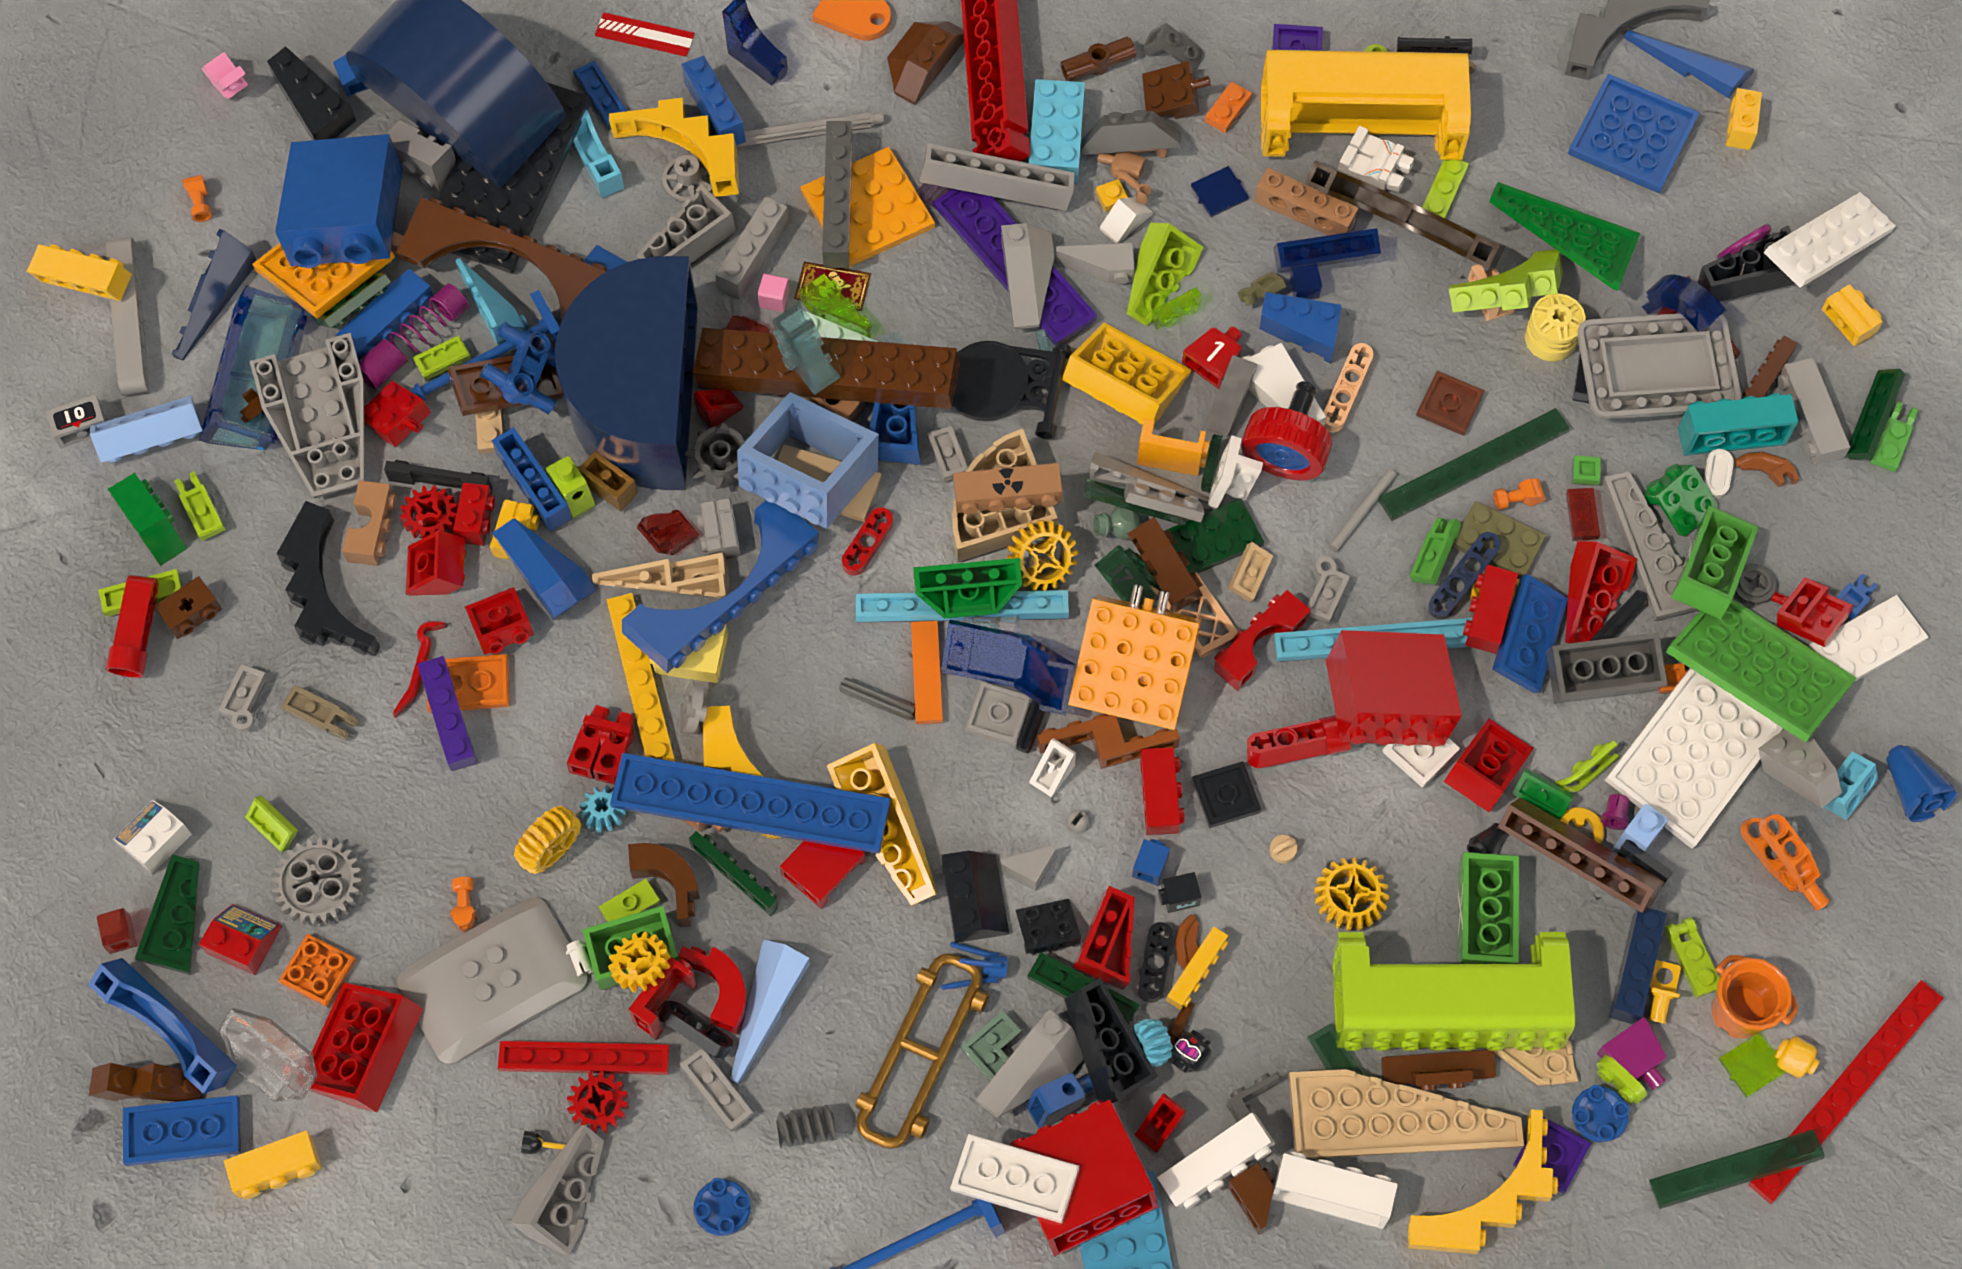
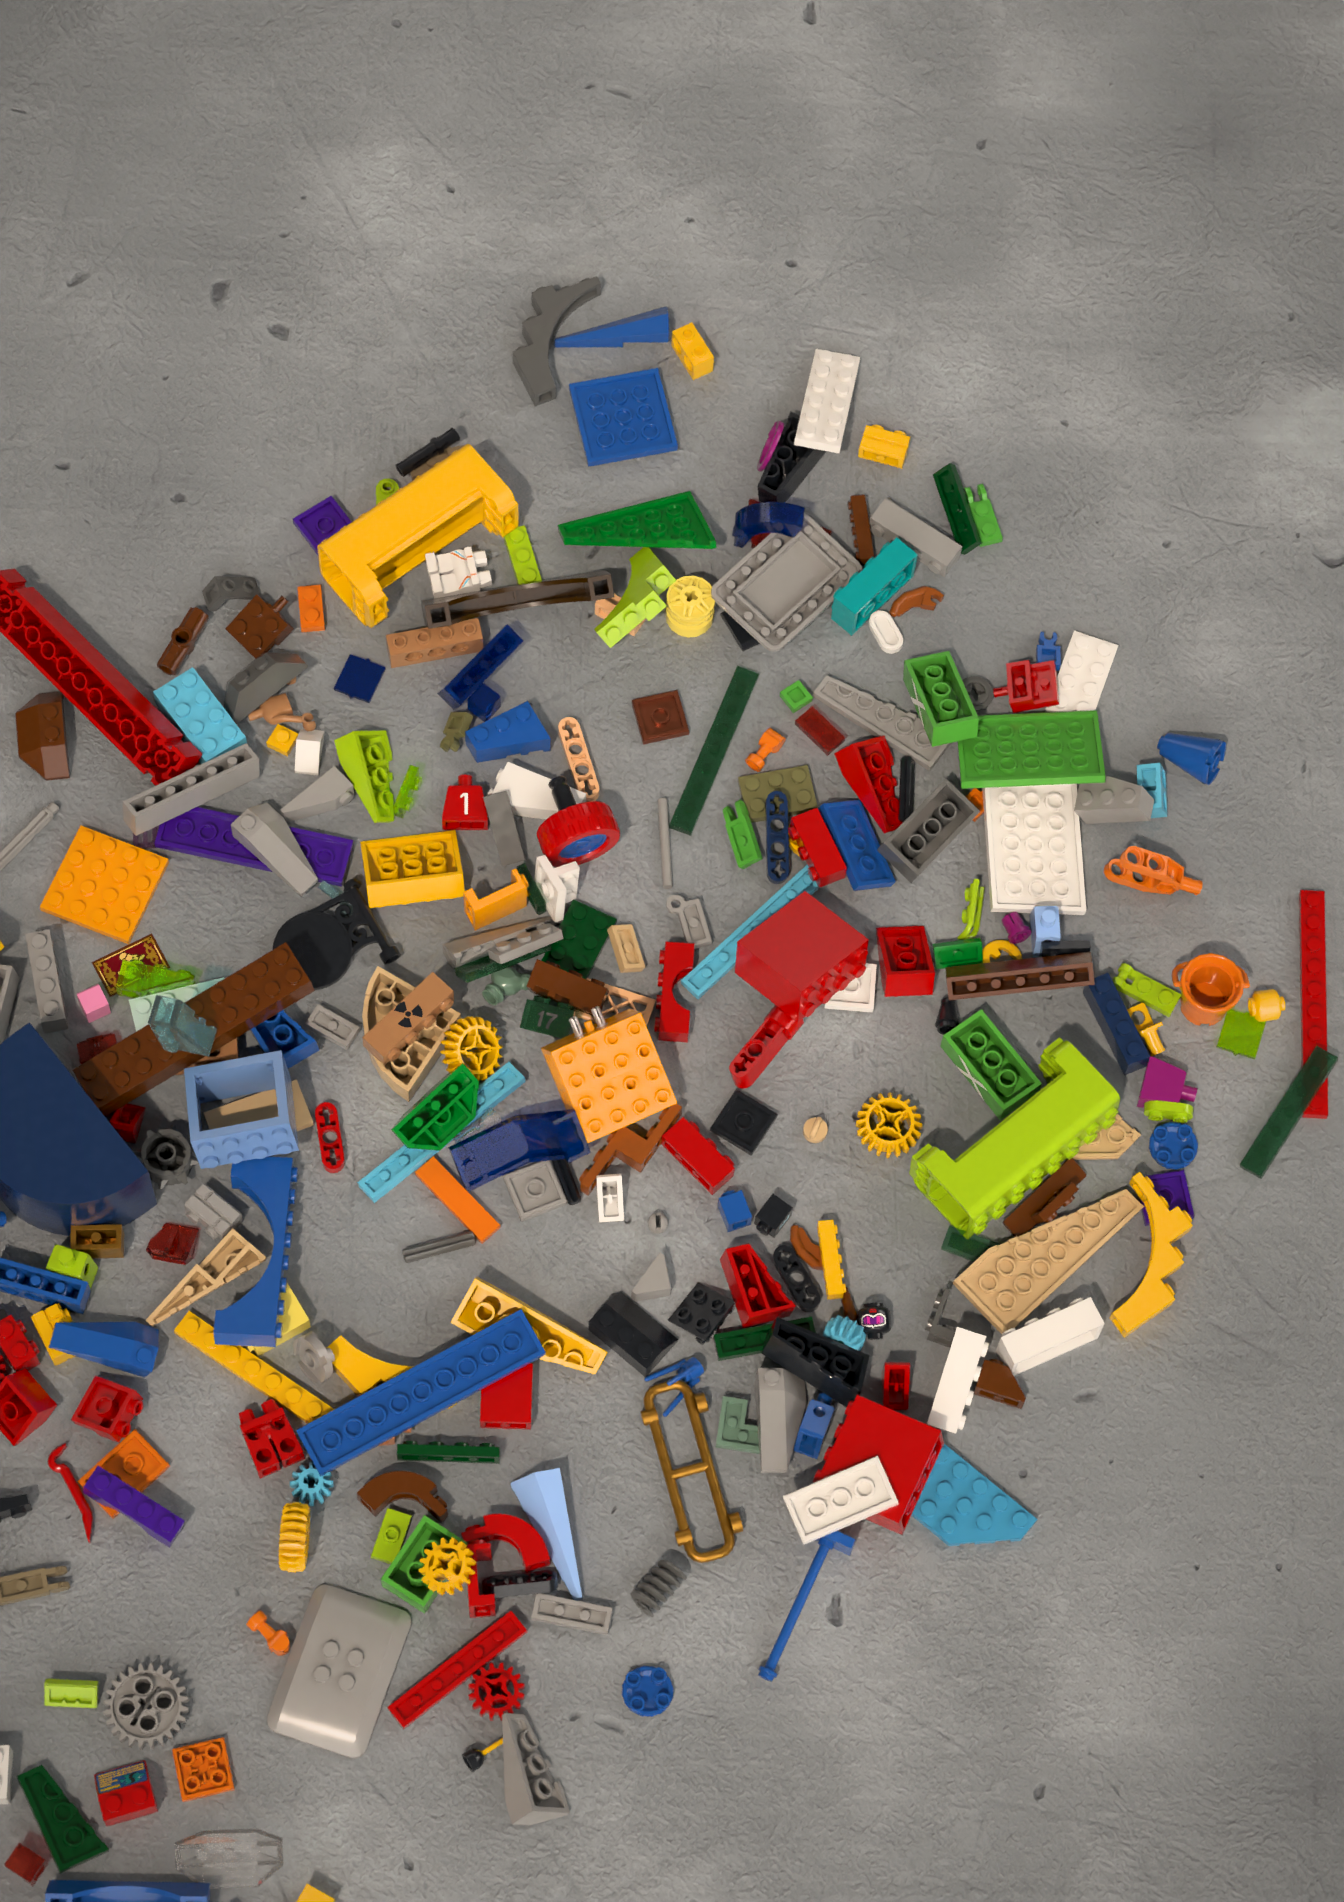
camera: 45 degrees left, 0 degrees up
(362, 1045) = (288, 1791): red slope -> none
(578, 955) = (389, 1602): white pin -> none
(837, 194) = (80, 891): dark grey brick -> none
(1681, 497) = (876, 666): green bracket -> none

